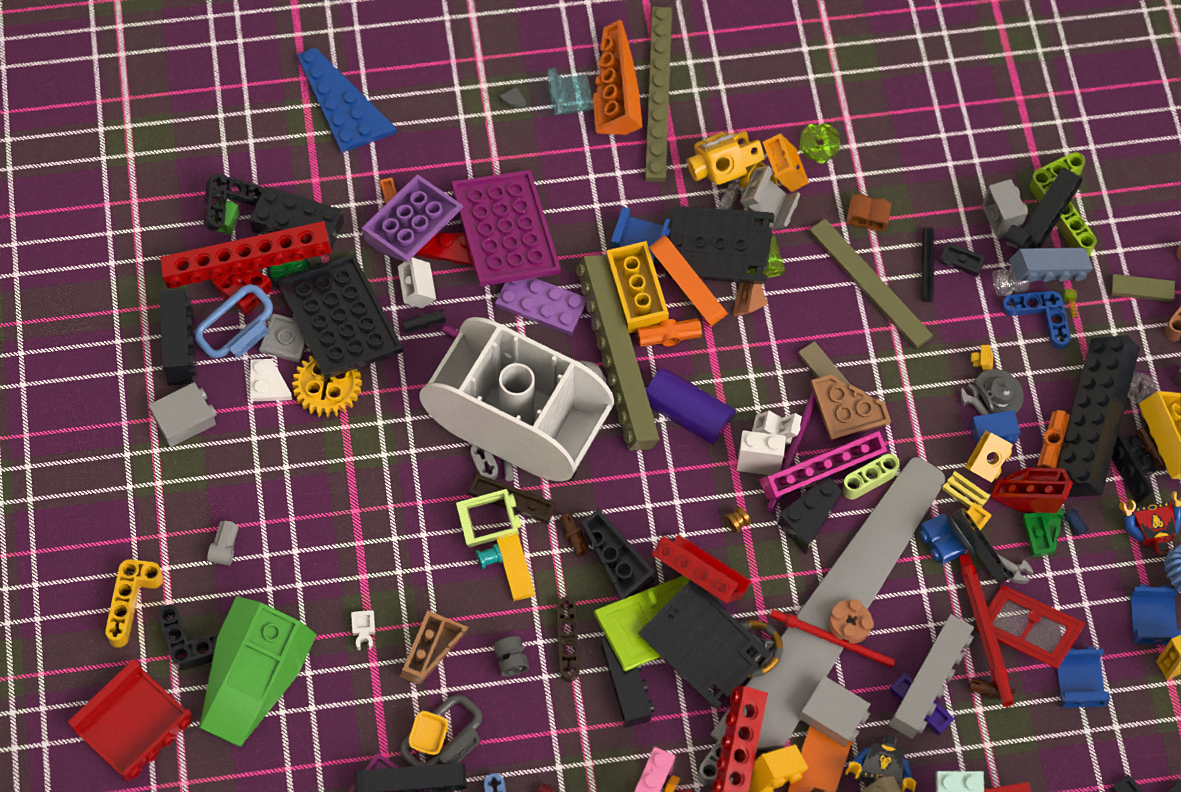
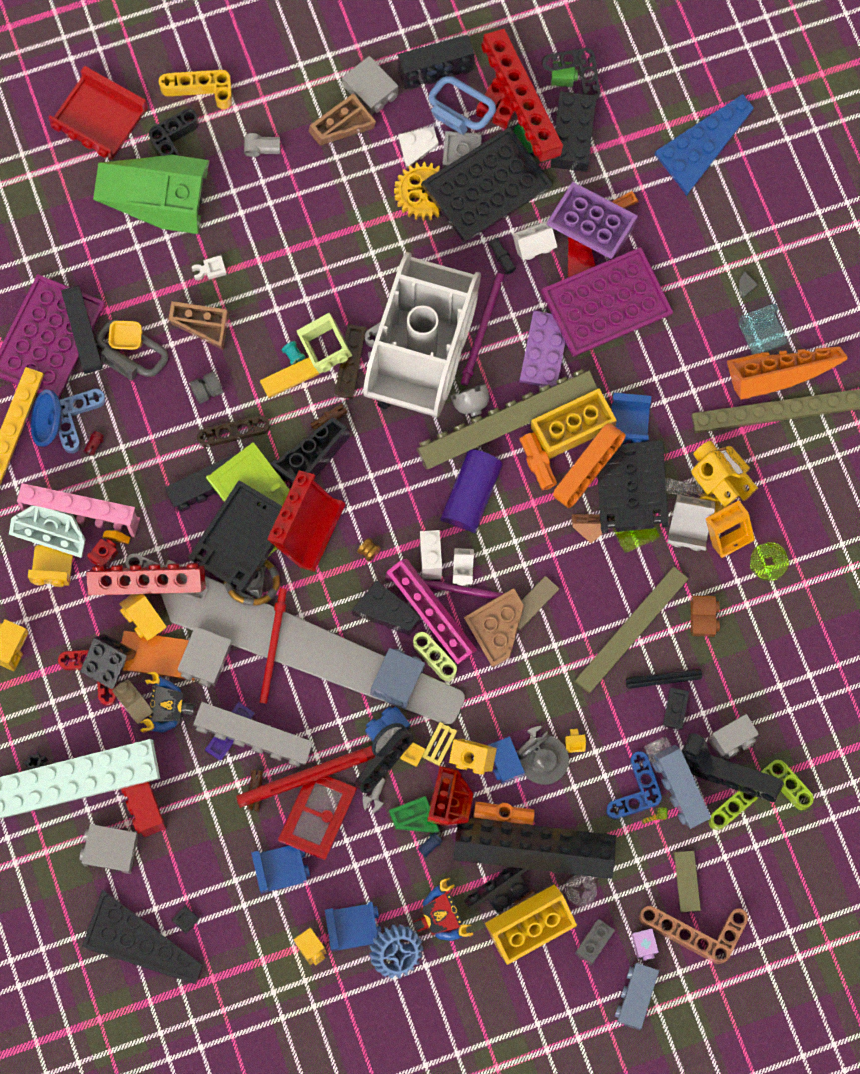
camera: 80 degrees right, 10 degrees up
(219, 450) = (342, 121): none -> medium nougat wedge
(858, 613) = (279, 657): nougat plate -> none
(891, 515) = (397, 678): none -> sand blue panel

